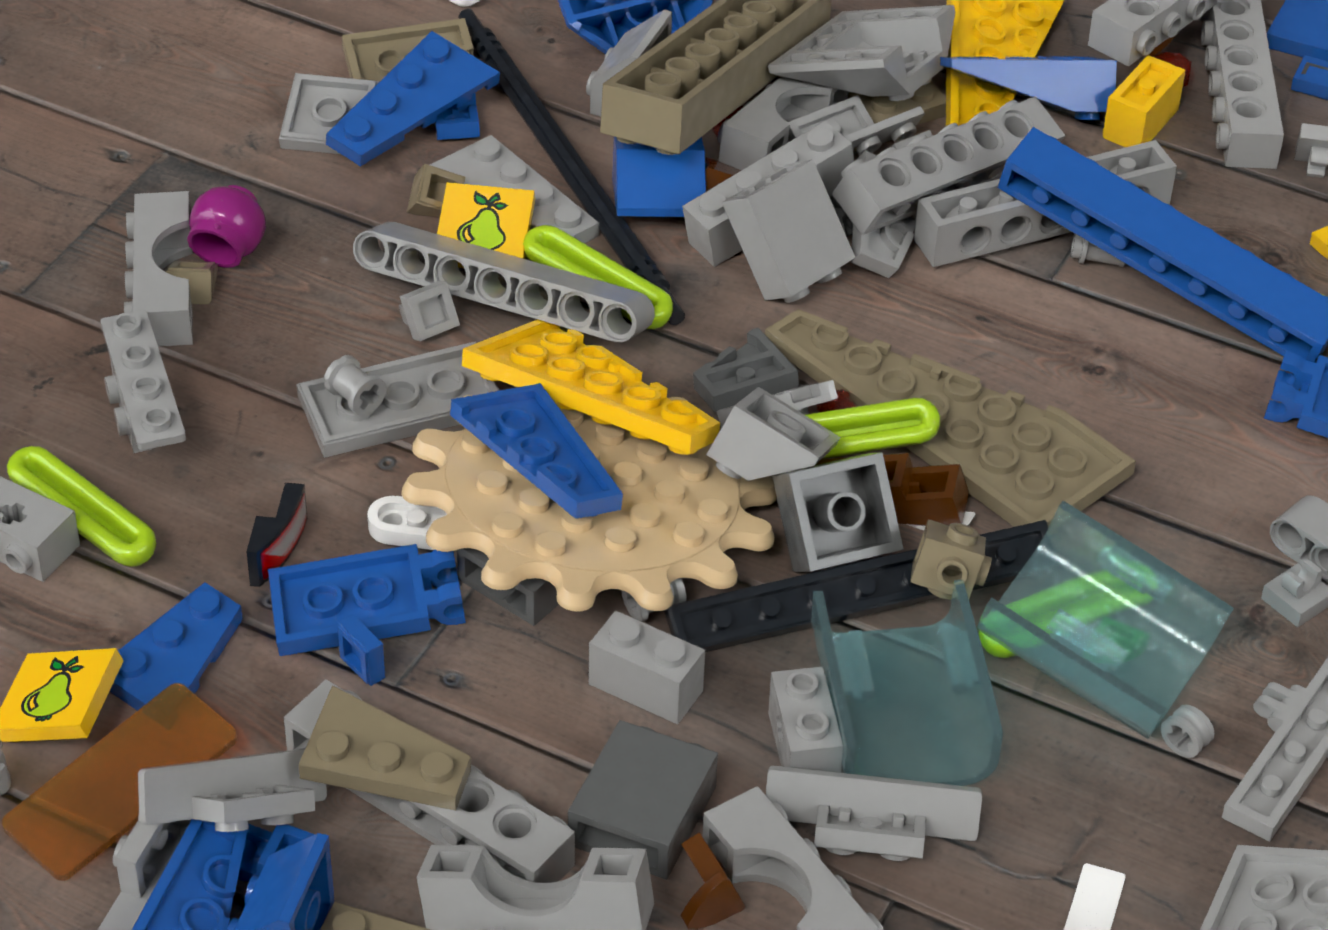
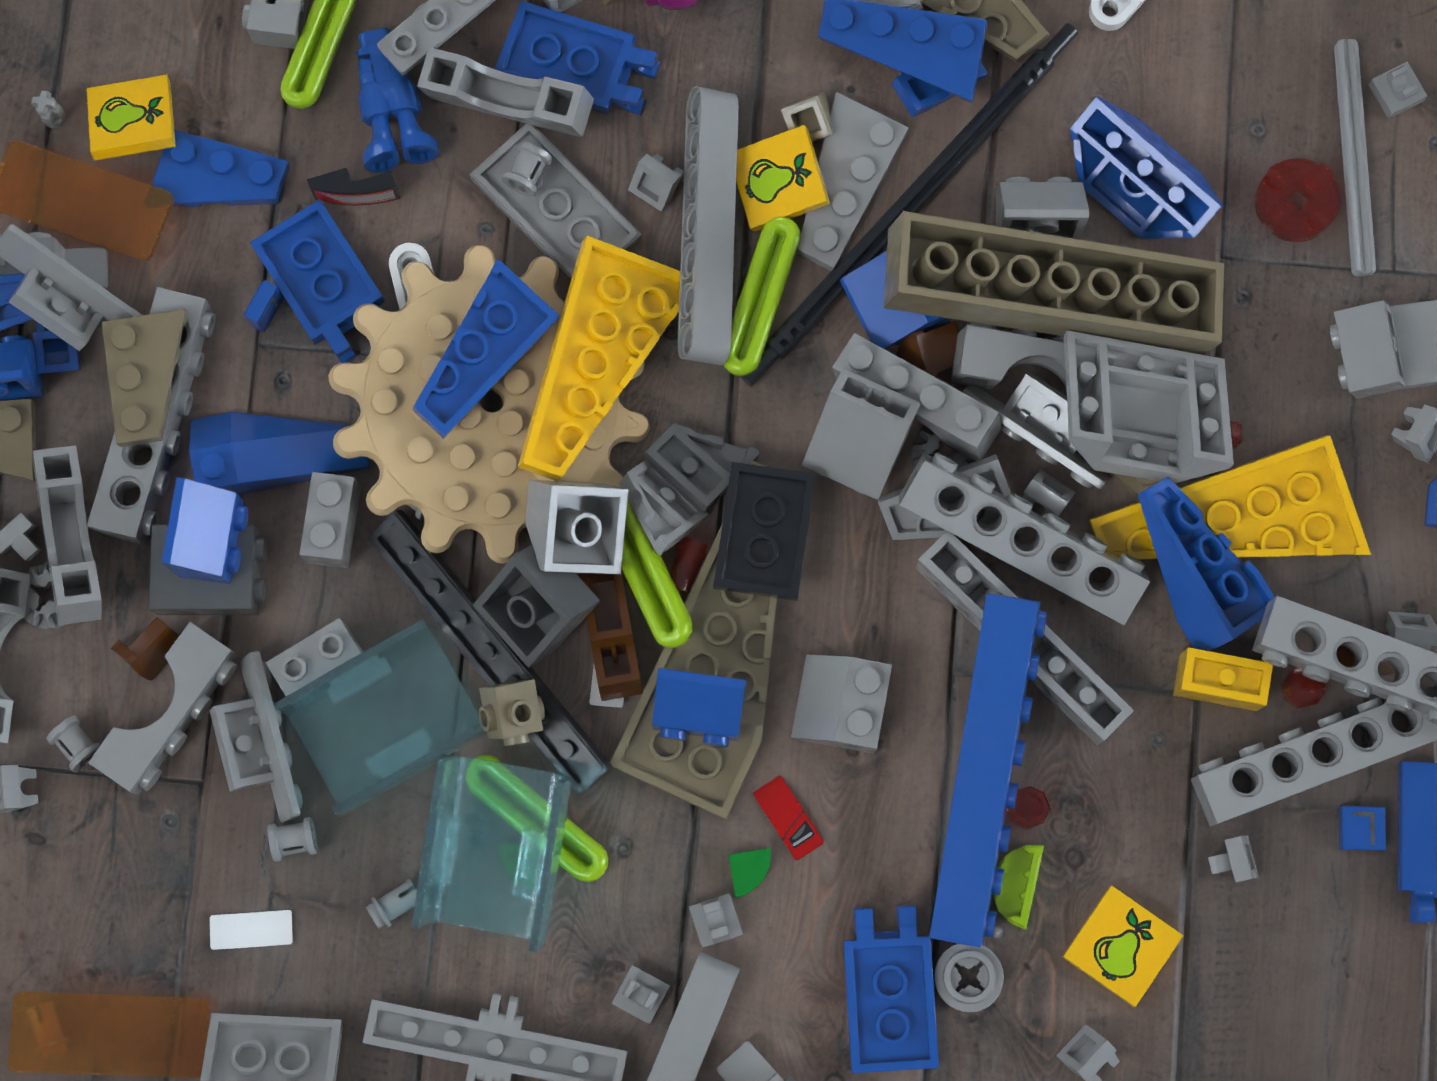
camera: 70 degrees right, 35 degrees up
(202, 475) = (389, 97): none -> blue piece
(255, 333) = (577, 53): none -> blue tile
(301, 340) = (536, 102): none -> light grey arch
(530, 714) = (264, 452): none -> blue wedge
(612, 740) = (204, 532): none -> slope
(849, 330) = (764, 531): none -> black plate
(1002, 831) = (292, 839): none -> light grey bush
(1012, 414) = (698, 706): none -> blue slope
(1051, 344) = (841, 702): none -> light grey slope
(1121, 768) = (392, 904): none -> light grey pin
(1149, 431) = (788, 817): none -> red sticker
(1187, 731) = (442, 949): light grey bush -> none
(1195, 473) = (749, 870): none -> green tile
(1239, 512) = (715, 920): none -> light grey tile

